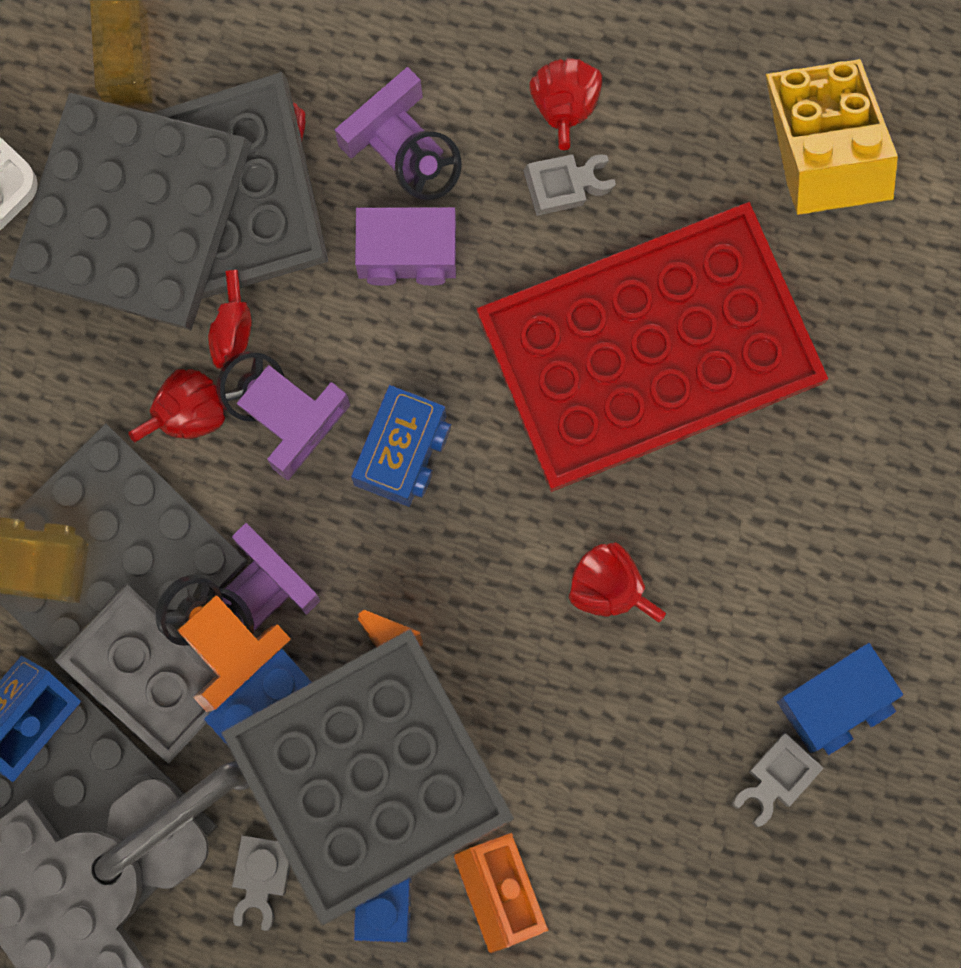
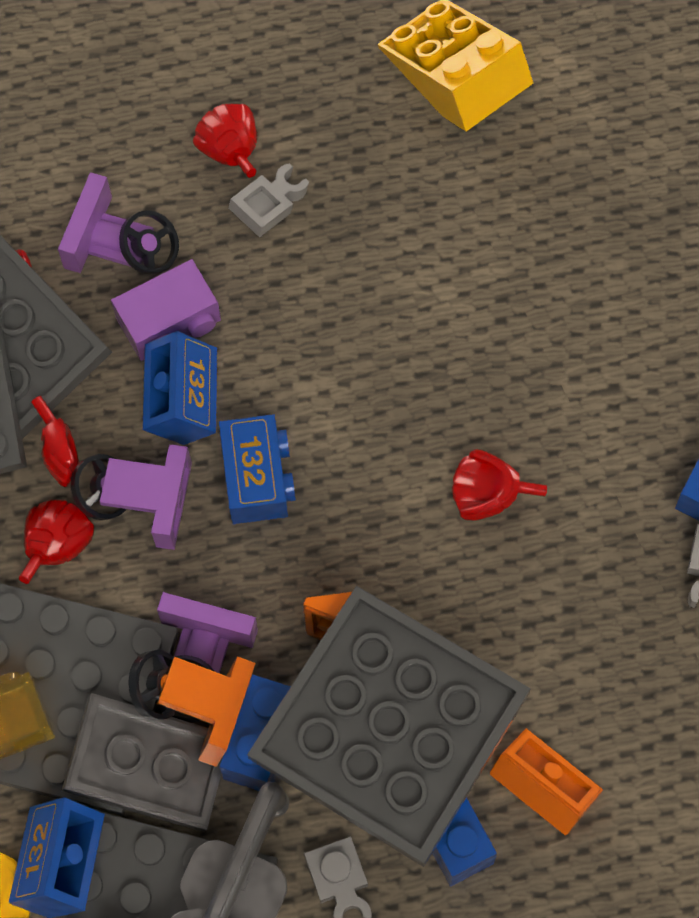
camera: 30 degrees left, 10 degrees down
(373, 330) = (180, 388): none -> blue brick
(651, 346) = (409, 290): red plate -> none

